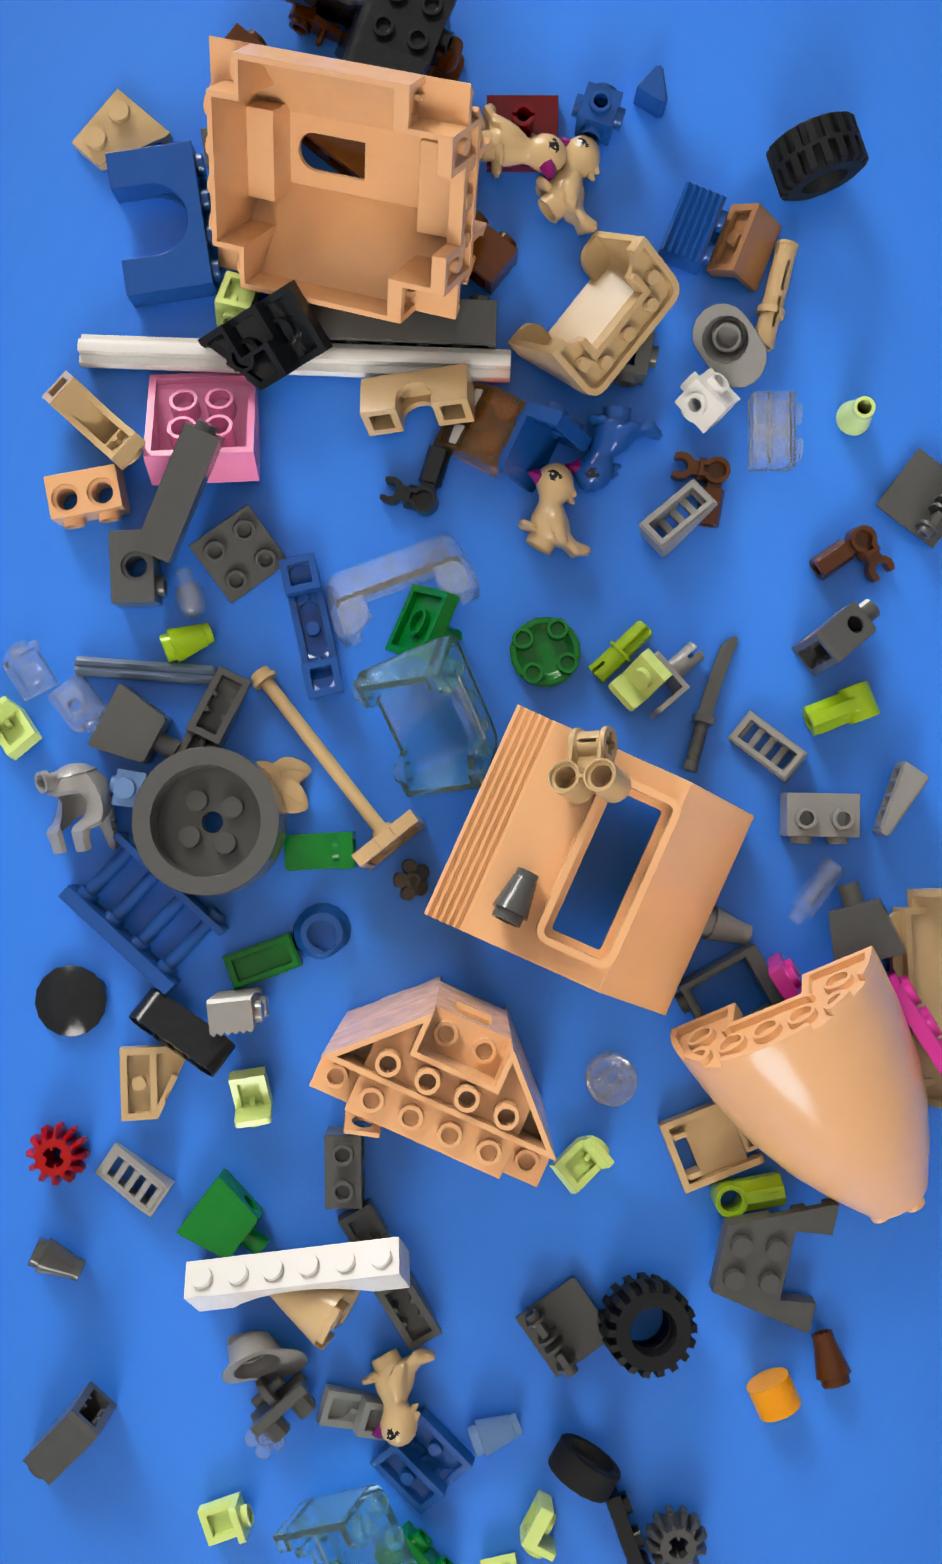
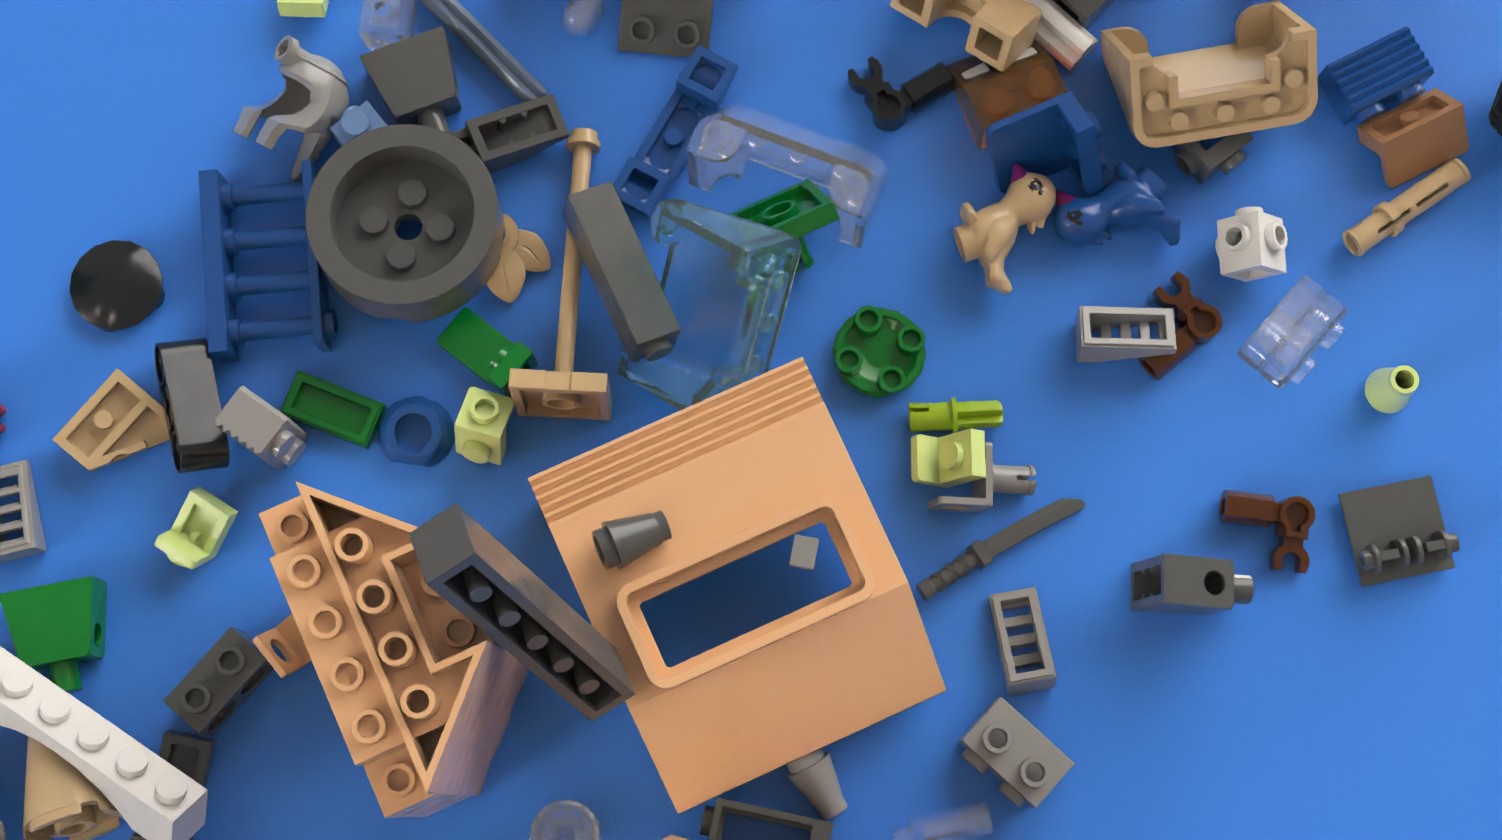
camera: 40 degrees right, 10 degrees down
(185, 641) = (542, 45): lime cone -> none
(359, 896) = (482, 426): none -> yellowish green bracket
(361, 740) = (621, 273): none -> dark grey brick
(411, 879) = (546, 453): dark grey plant -> none
(506, 1009) = (520, 612): none -> dark grey brick
(591, 761) = (816, 472): tan piece -> none
(622, 820) = (804, 552): none -> light grey piece
(730, 344) = (1319, 211): light grey piece -> none
(847, 706) = (1142, 669): lime piece -> none
(900, 793) = (1126, 801): light grey slope -> none

